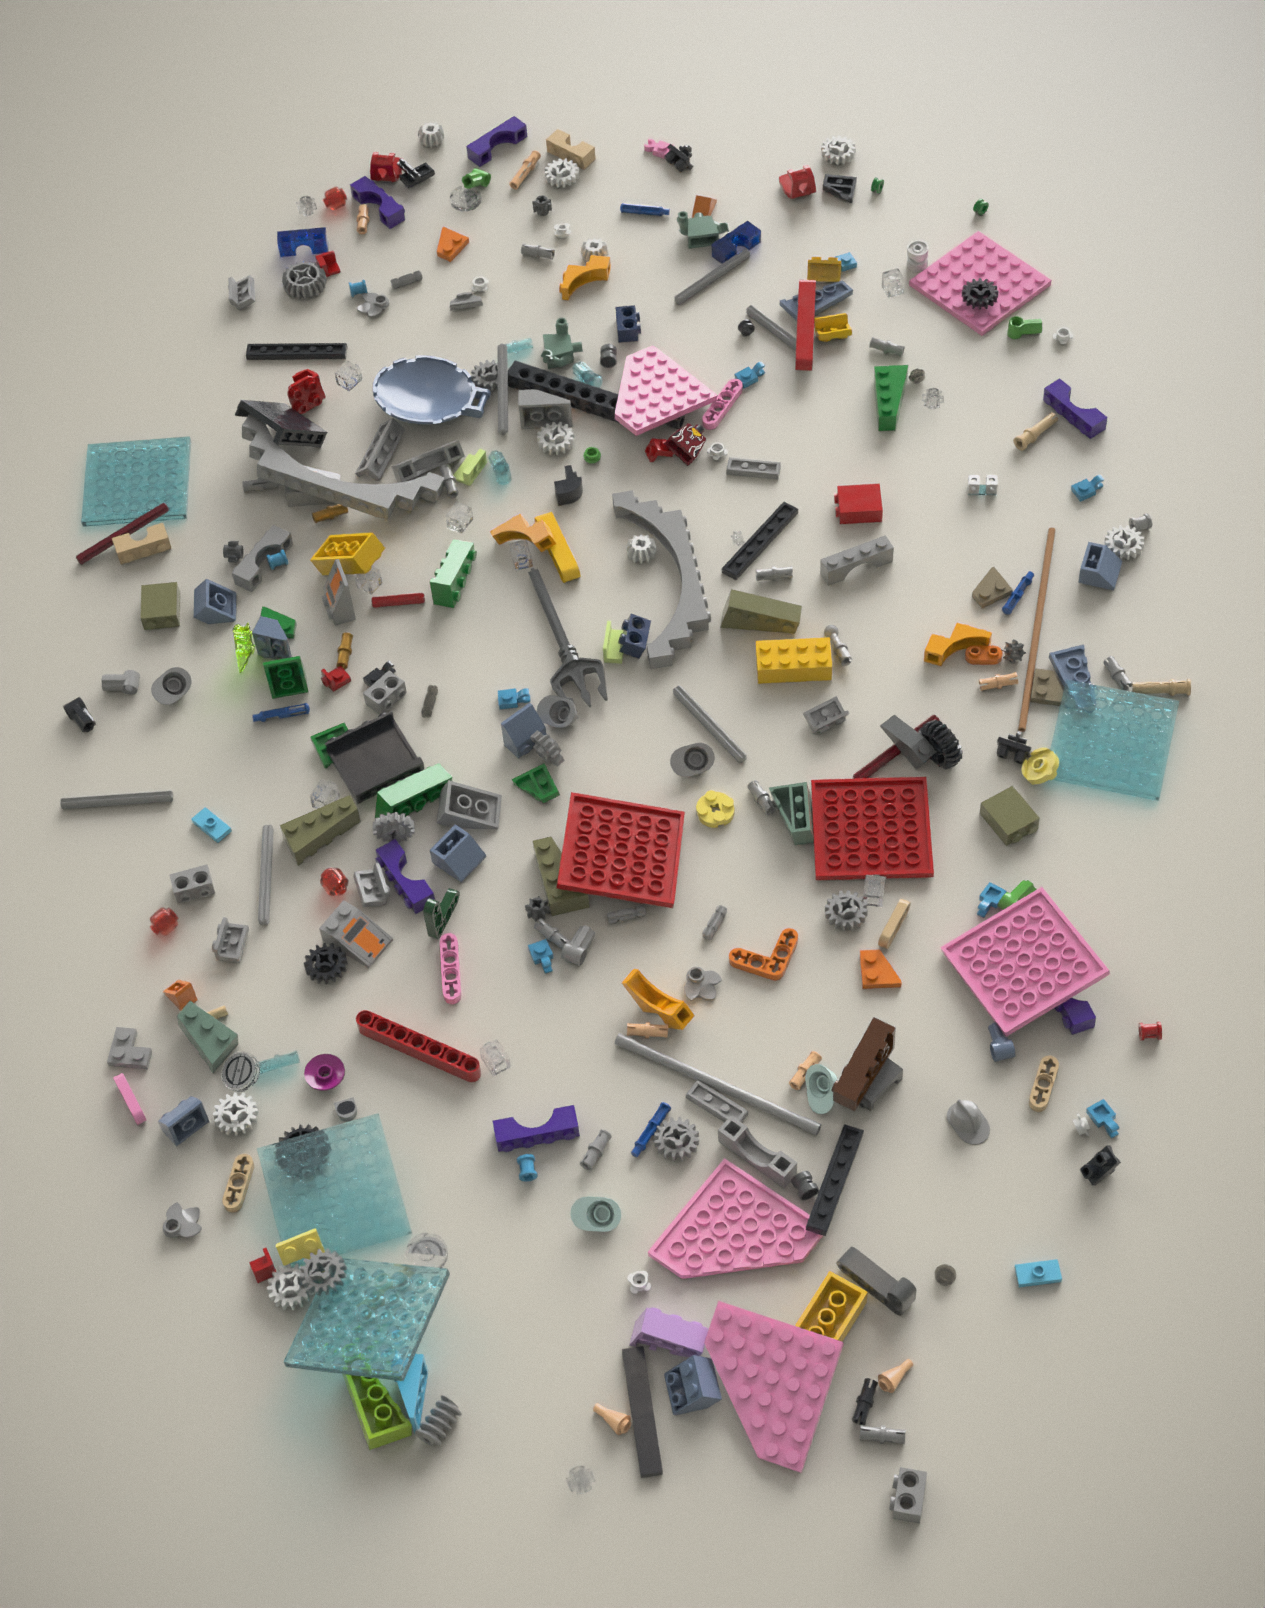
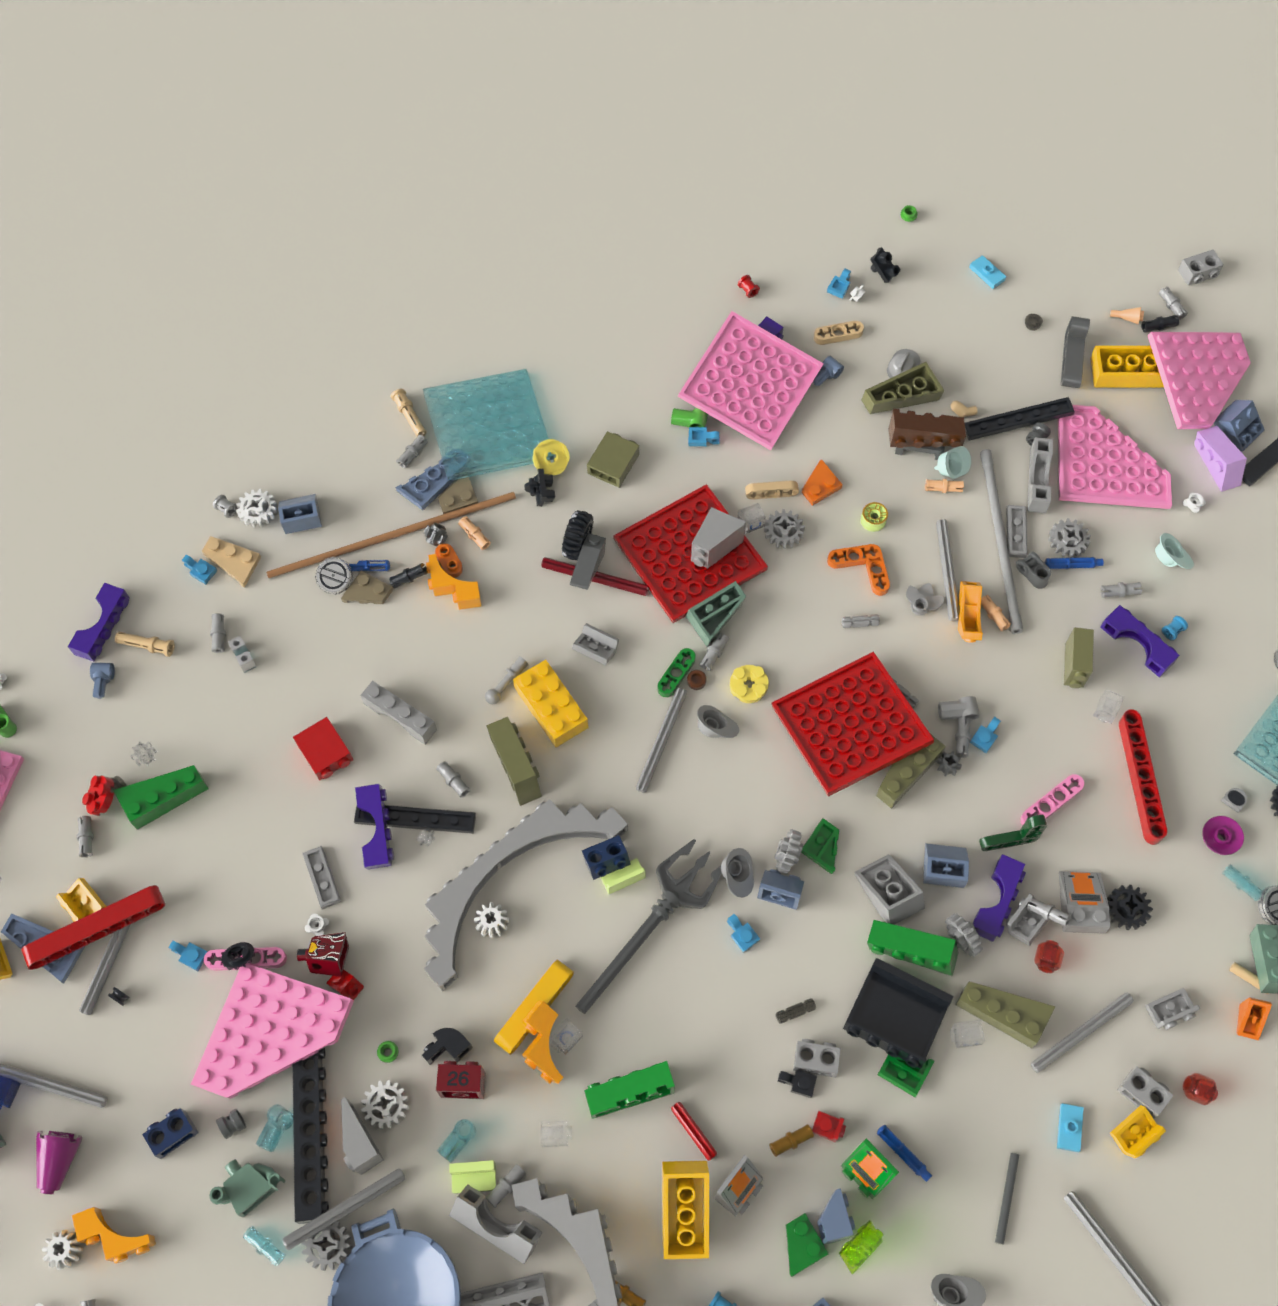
camera: 125 degrees left, 10 degrees up
(170, 859) = (1137, 1132): none -> yellow bracket
(201, 758) = (1007, 1198): none -> dark grey bar
(363, 893) = (1049, 912): none -> light grey pin
(535, 478) = (460, 1080): none -> dark red brick
(553, 1058) = (1078, 657): none -> olive brick
(658, 262) = (54, 1159): none -> magenta cone
(666, 1088) = (1032, 568): none -> dark grey piece
(722, 386) = (237, 950): none -> black gear
(726, 1025) = (947, 568): none -> light grey axle
(746, 774) = (696, 679): none -> reddish brown tile
(762, 770) = (676, 664): none -> green beam
(787, 509) = (378, 851): none -> dark purple arch
(812, 984) = (874, 509): none -> yellowish green wheel
(864, 834) = (716, 538): none -> light grey slope
(878, 1138) = (963, 411): none -> tan arm
(913, 359) = (99, 795): none -> red plate
(931, 1095) = (904, 390): none -> olive wedge
(982, 615) = (408, 575): none -> black pin
(1014, 477) = (217, 633): none -> light grey pin
(1018, 568) = (334, 575): none -> tile
(1023, 396) = (101, 675): none -> sand blue axle
(1084, 512) = (233, 559): none -> tan wing
(1163, 1236) = (909, 213): none -> bright green plate

